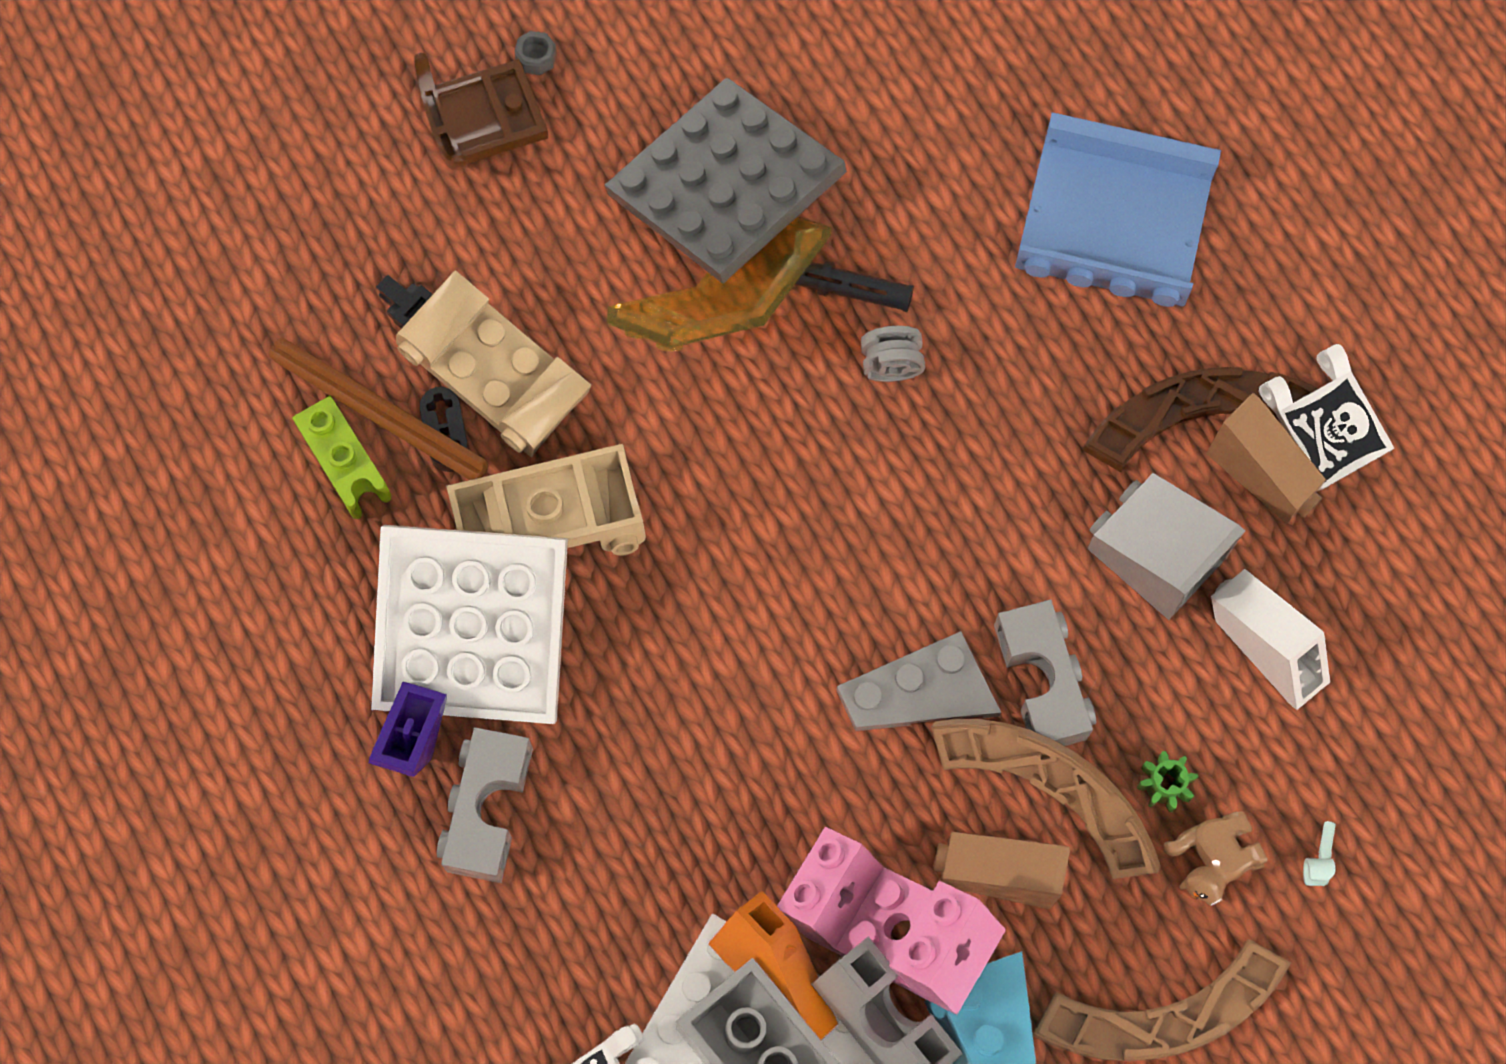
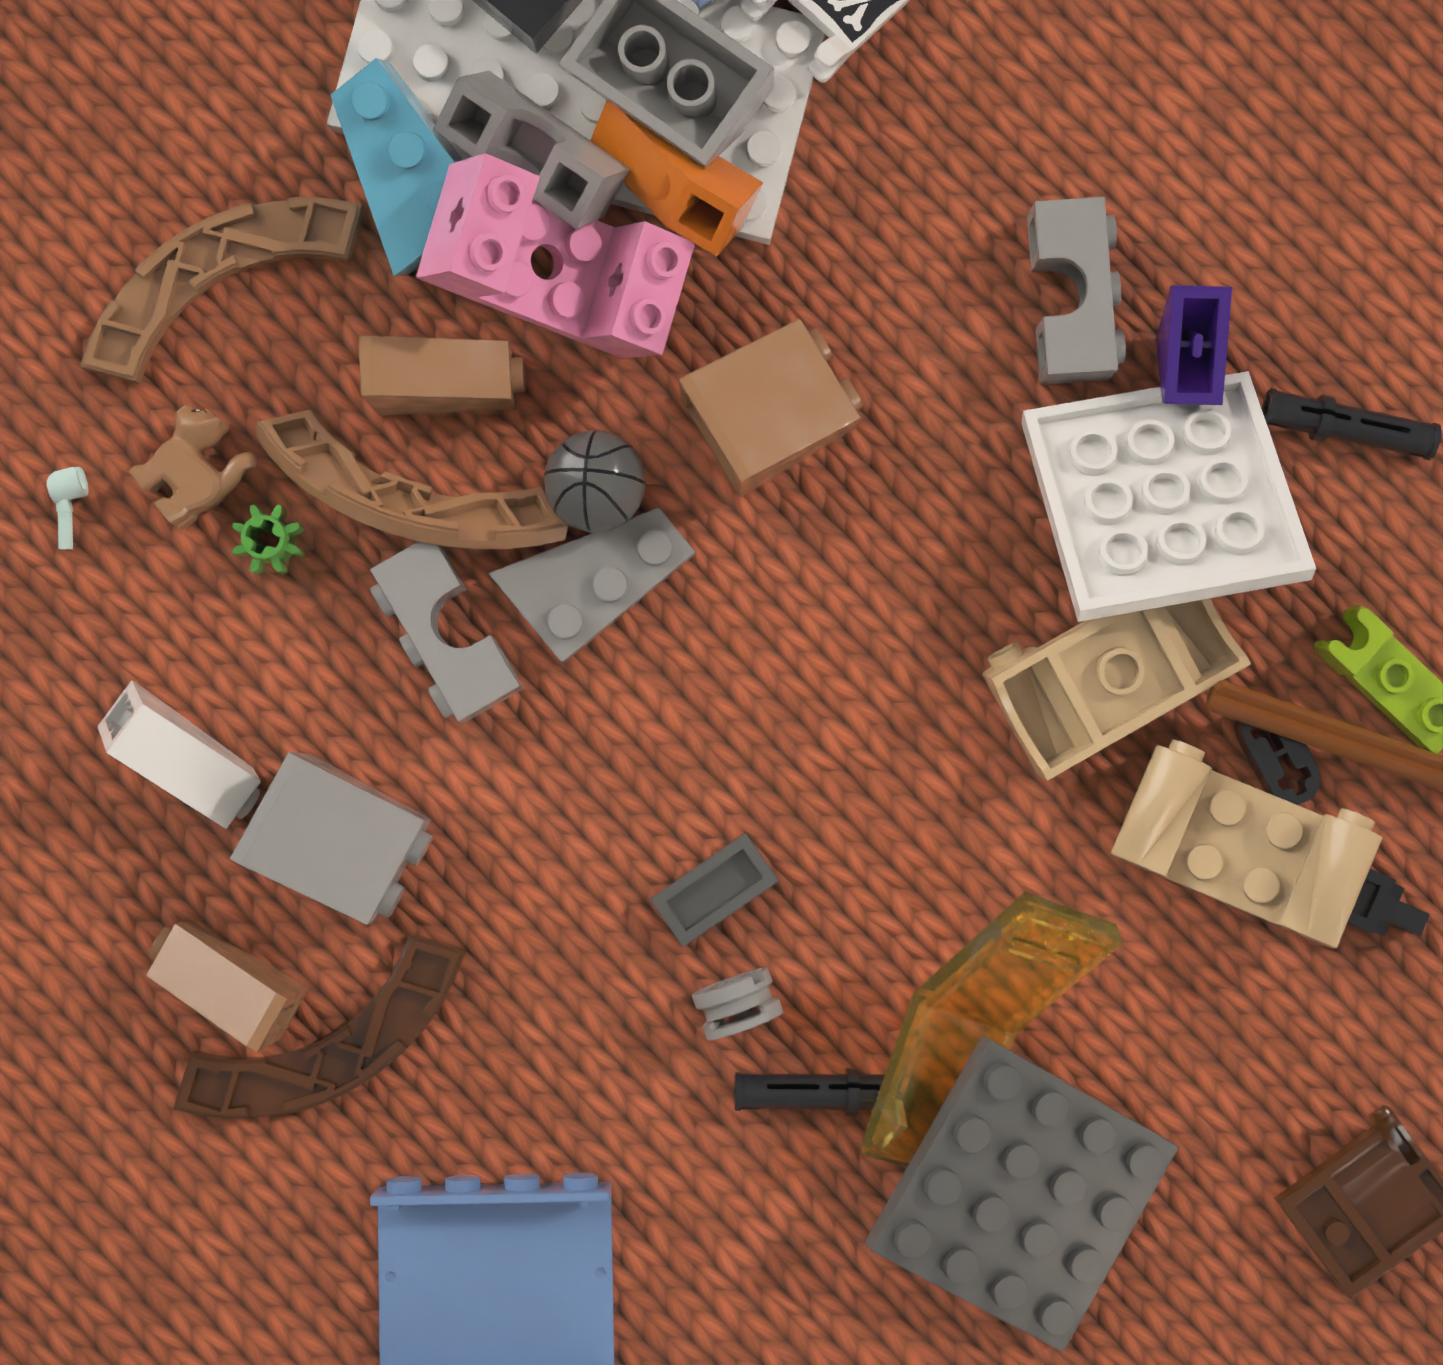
camera: 165 degrees right, 15 degrees up
(353, 671) = (1328, 419): none -> black pin
(536, 52) = (1330, 1318): dark grey tile -> none
(749, 774) = (770, 405): none -> medium nougat slope
(887, 442) = (714, 889): none -> dark grey tile
(901, 753) = (594, 481): none -> dark grey piece
(1332, 423) = (153, 1063): flag -> none

